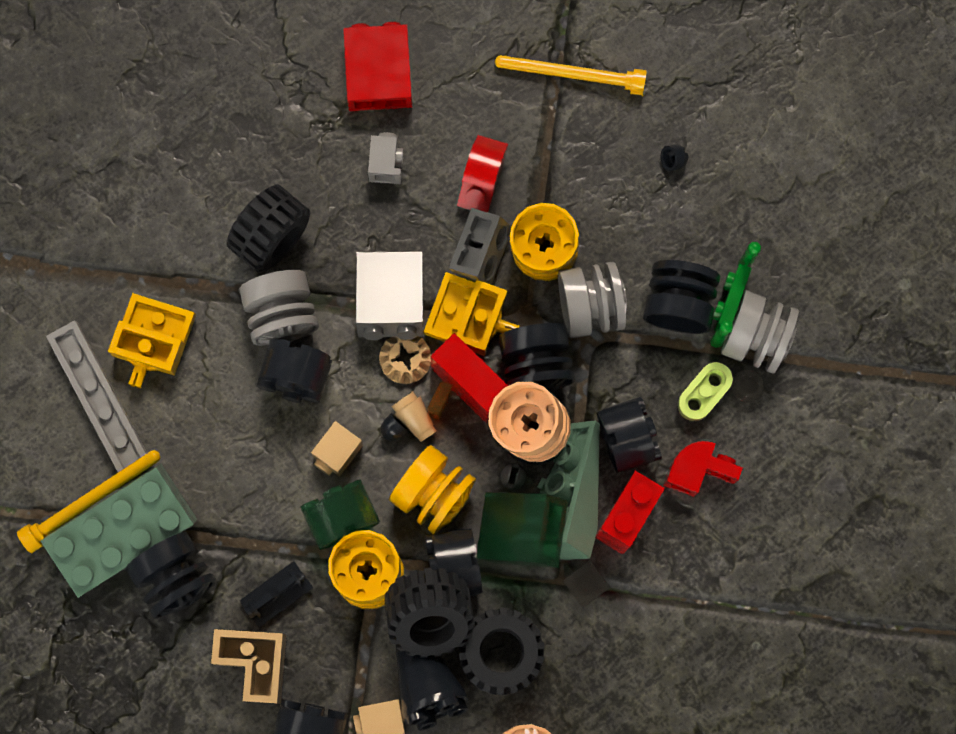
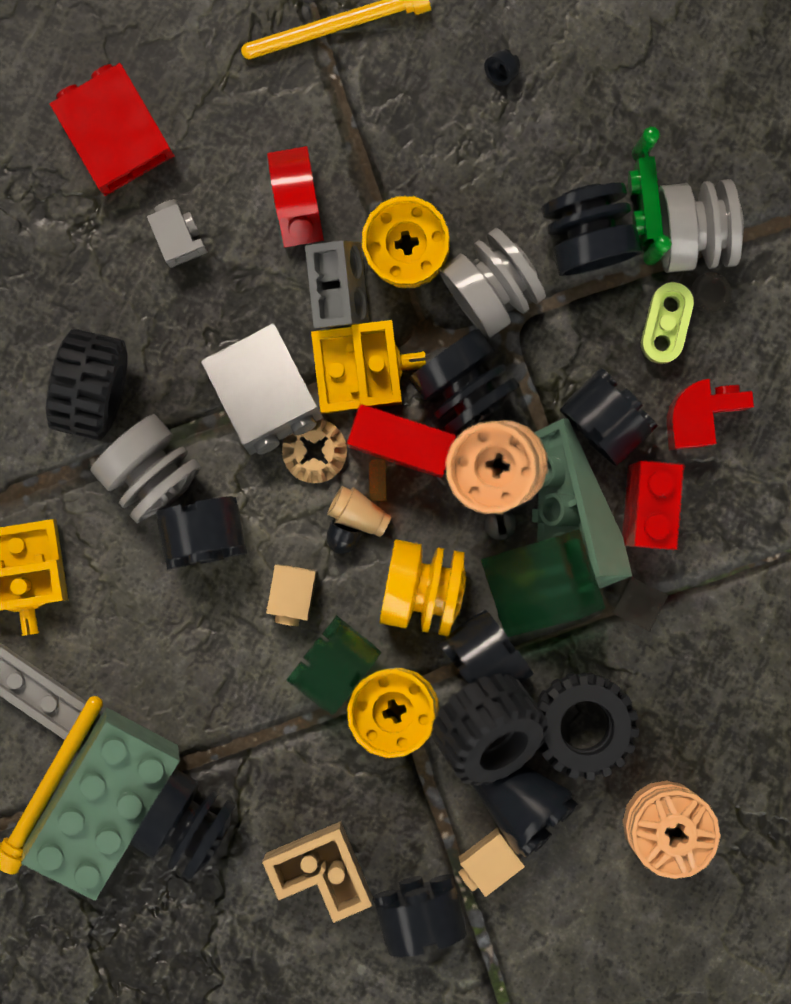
camera: 20 degrees left, 10 degrees up
(276, 594) = (306, 783): black hinge -> none

